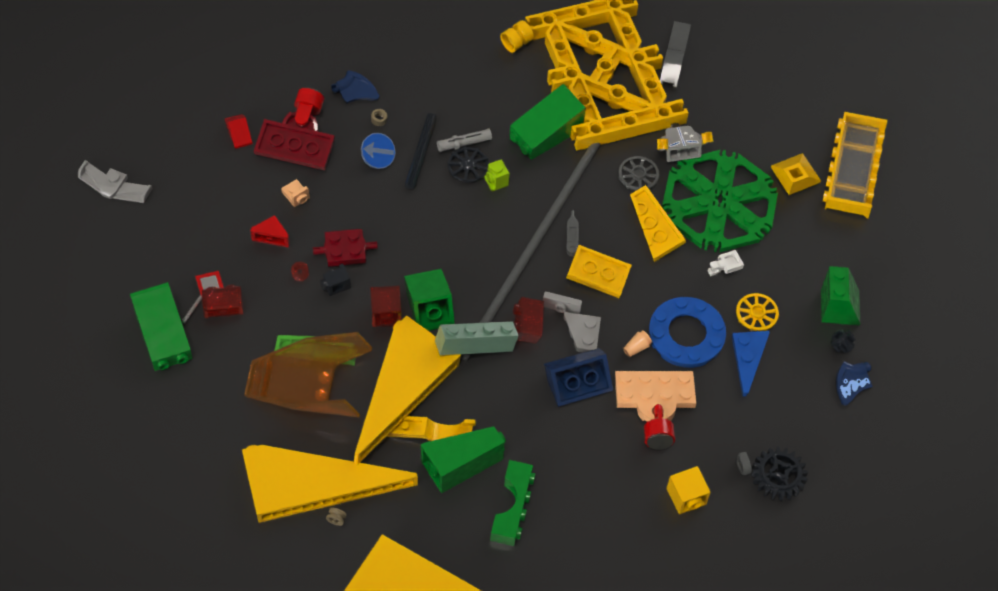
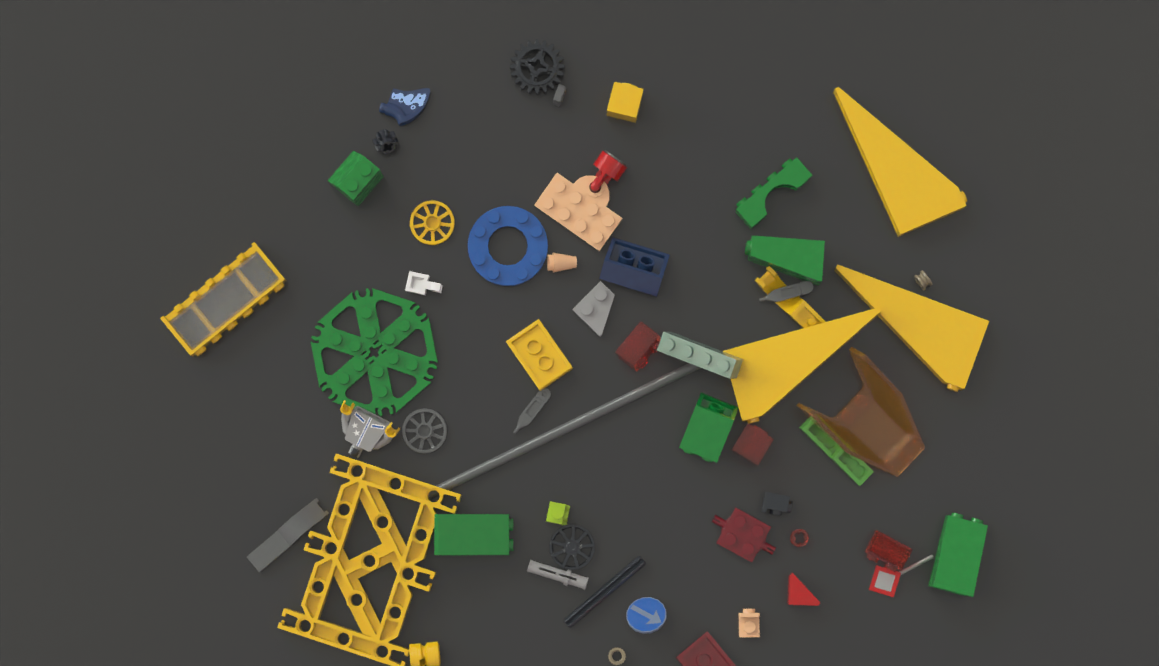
camera: 135 degrees left, 25 degrees up
(445, 428) = (789, 292): none -> dark grey piece
(562, 303) = (597, 343): light grey plate -> none
(657, 226) = (454, 359): yellow wing -> none
(748, 352) = (470, 191): blue wing -> none
(795, 174) = (284, 329): yellow slope -> none

